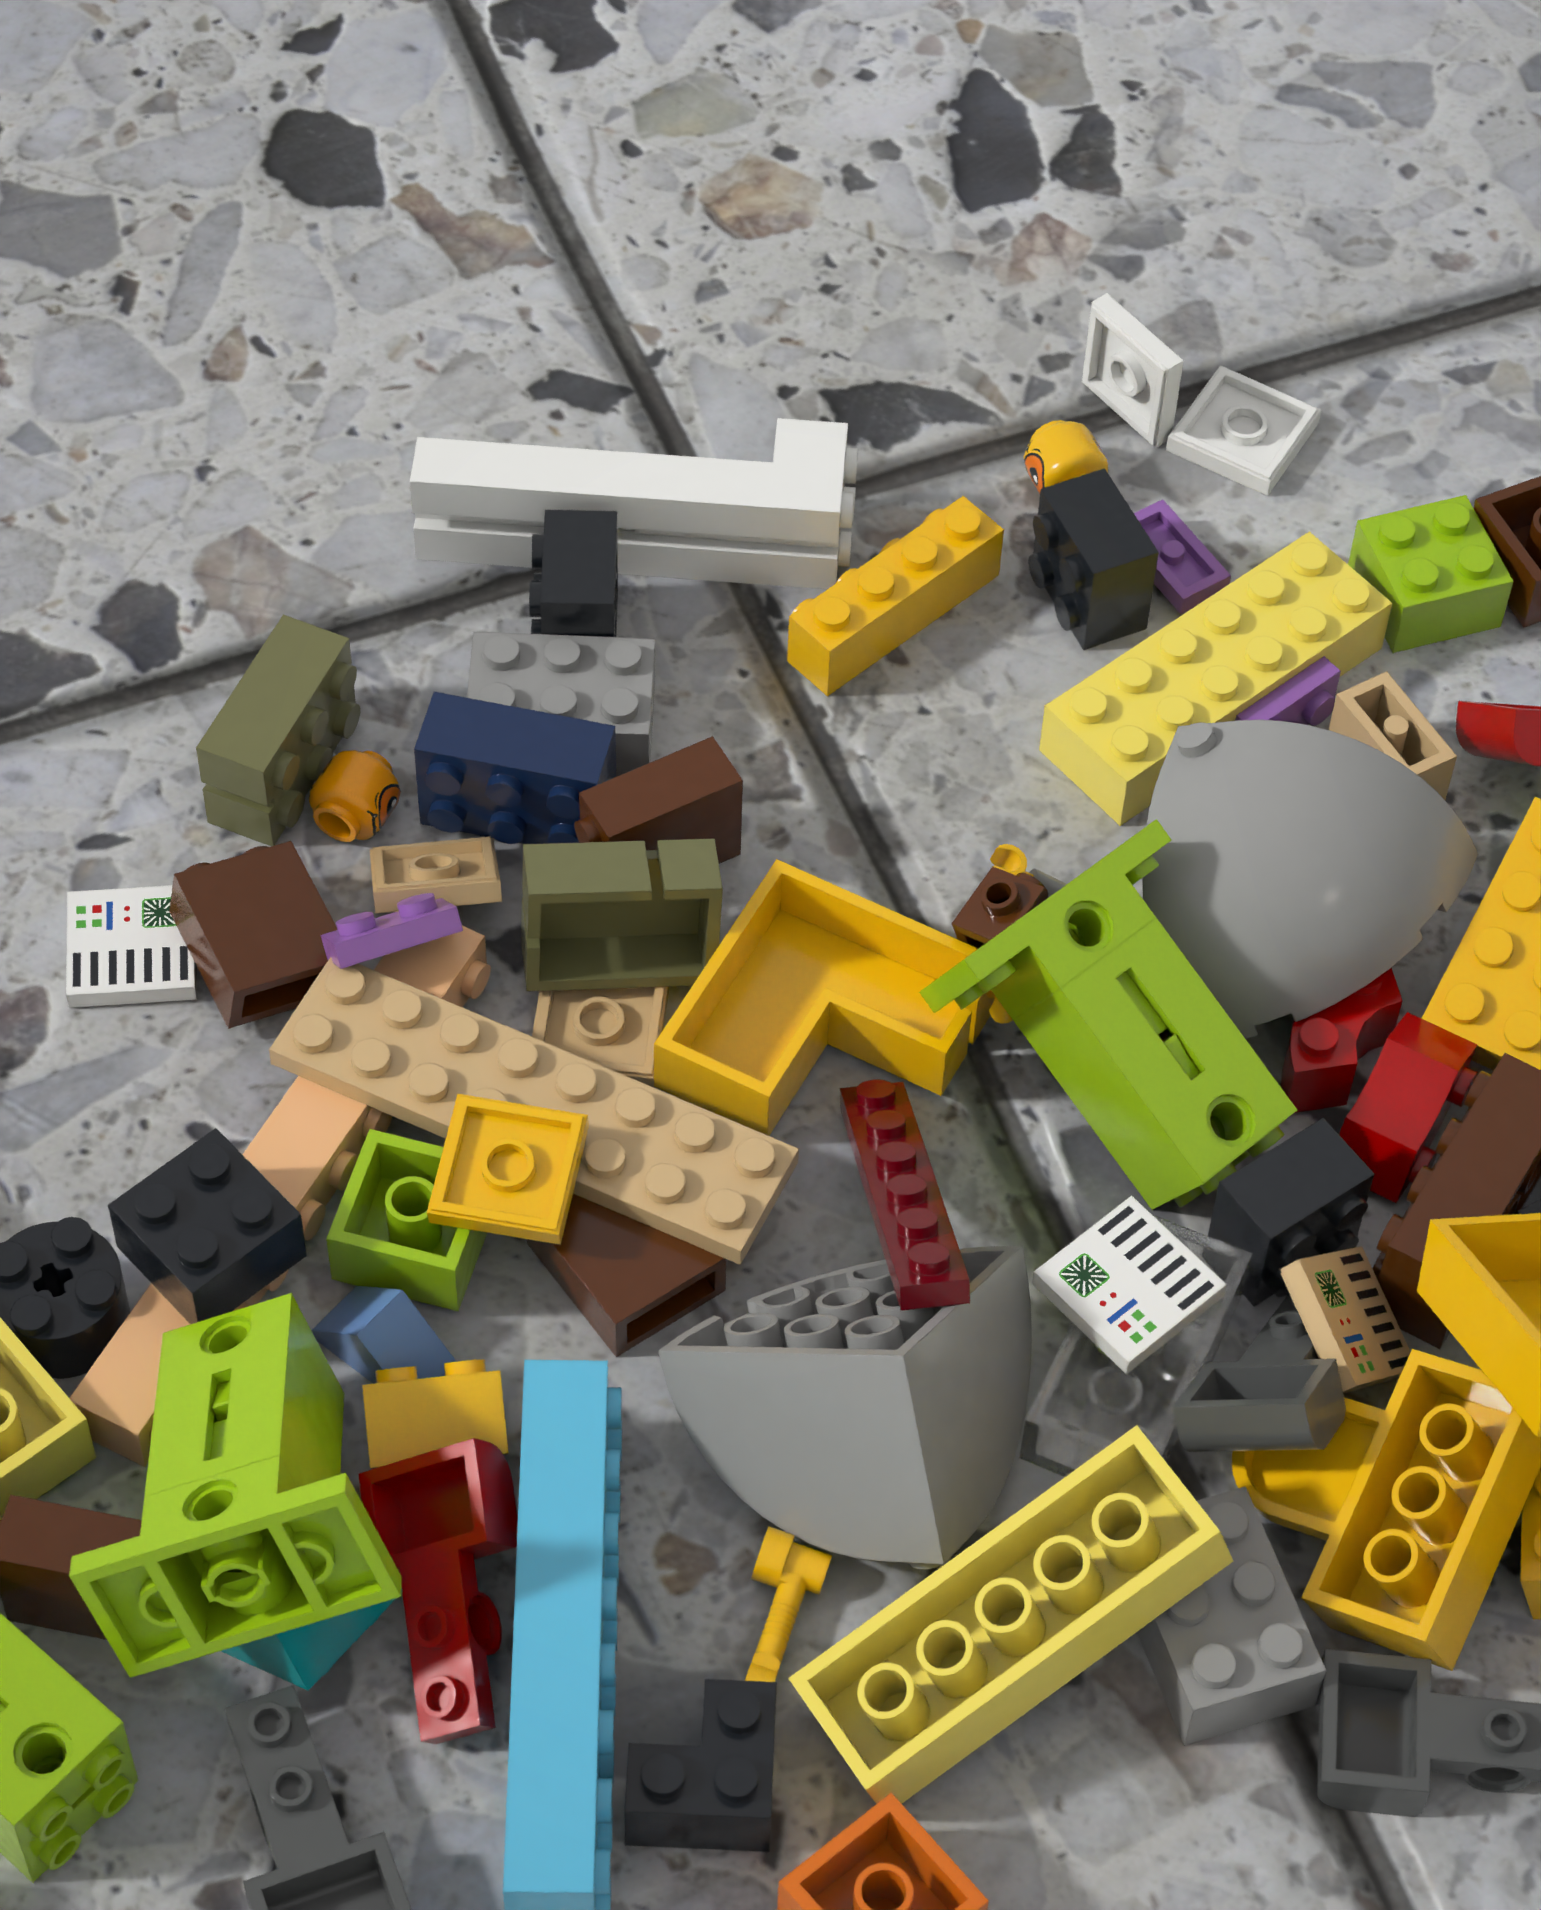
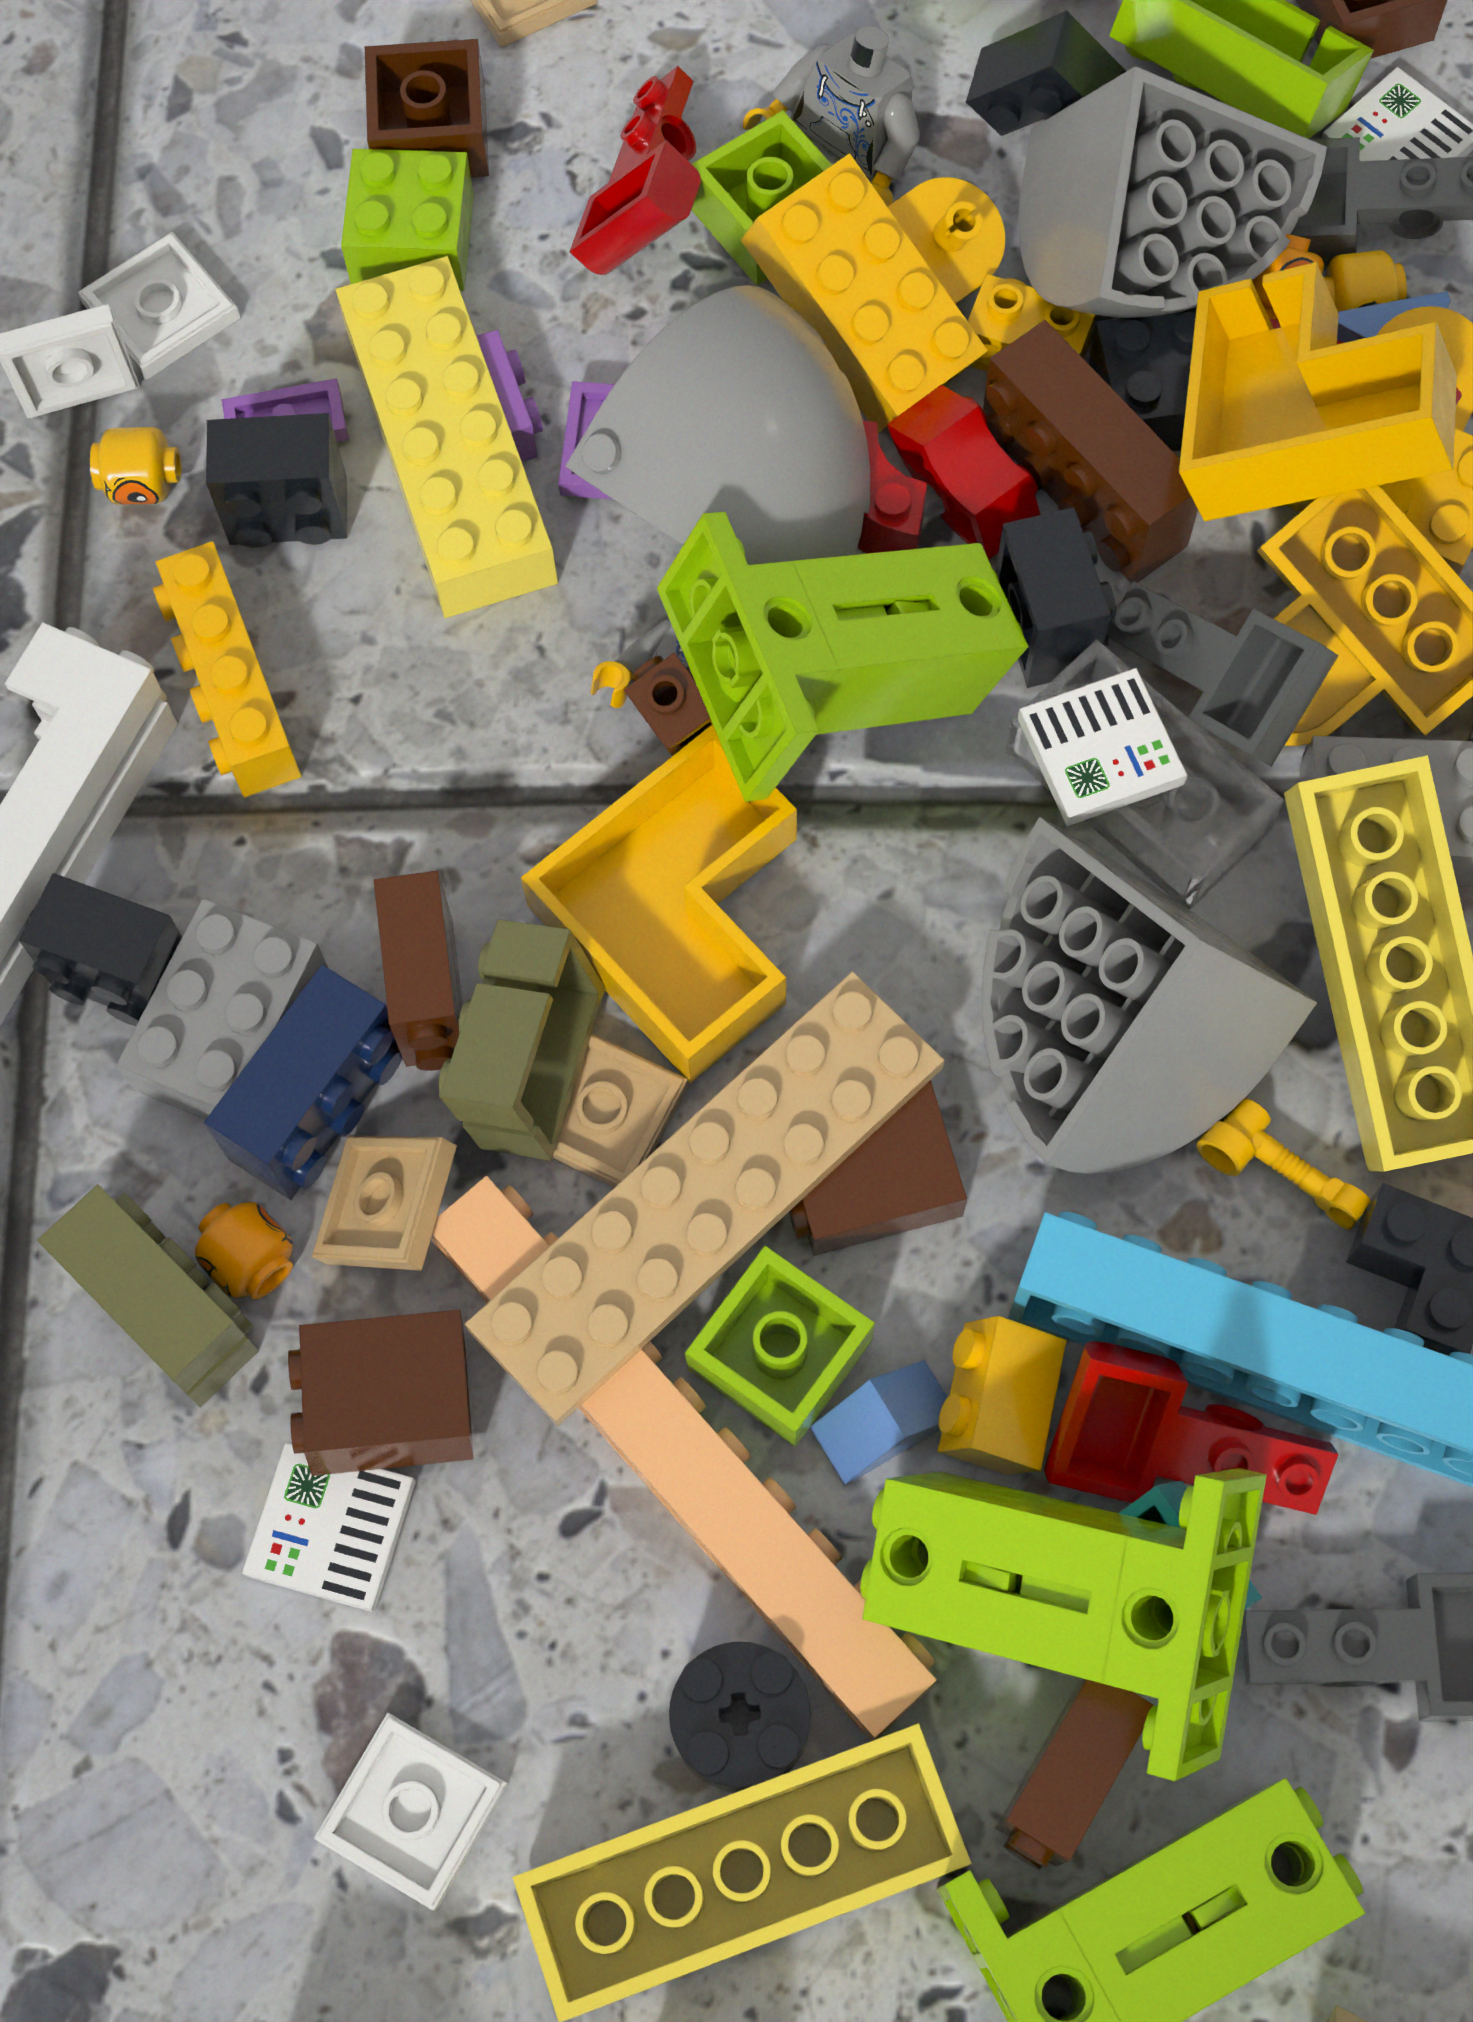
camera: 65 degrees left, 15 degrees up
(208, 1229) = (755, 1541): black brick -> none
(366, 937) = (467, 1259): medium lavender plate -> none
(508, 1169) = (791, 1235): yellow tile -> none
(904, 1196) = (947, 897): dark red plate -> none
(1348, 1316) = (1184, 590): tan tile -> none
(1387, 720) = (591, 324): tan brick -> none

